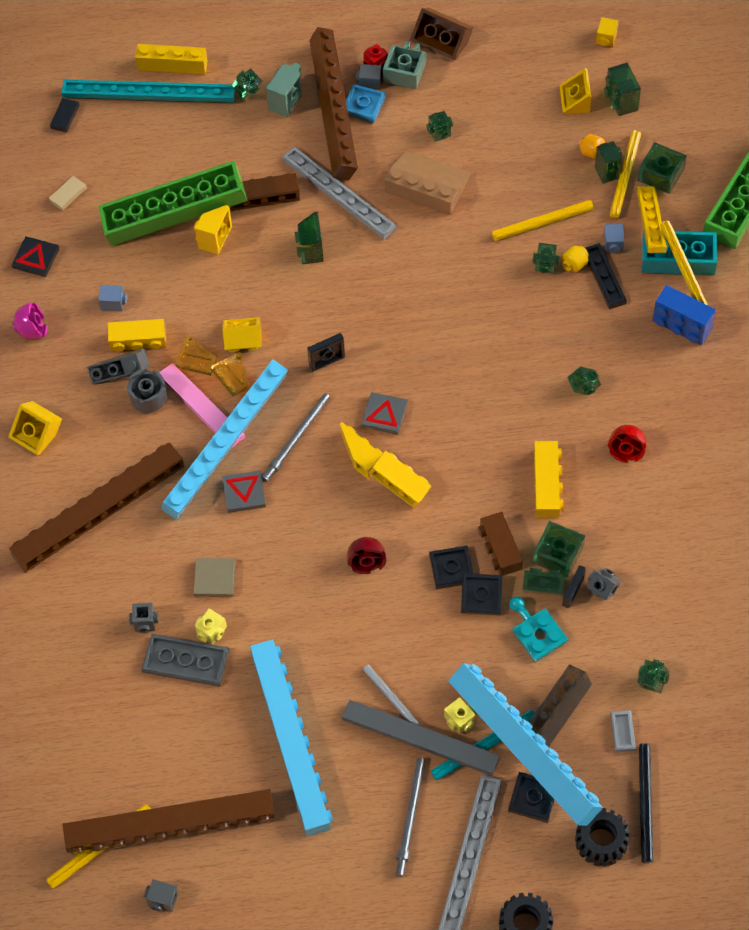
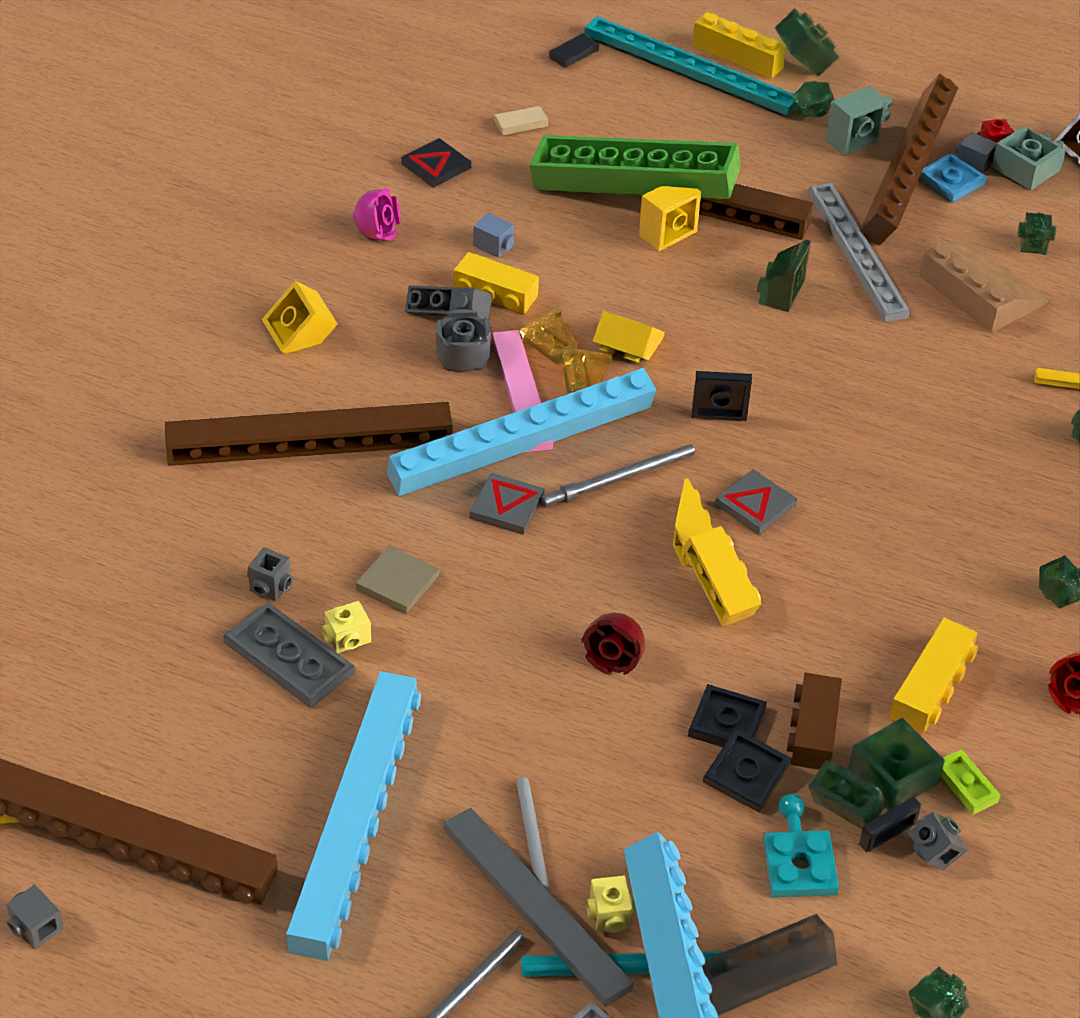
camera: 25 degrees right, 15 degrees down
(217, 38) = (807, 41): none -> clear green brick
(599, 537) = (968, 782): none -> lime plate

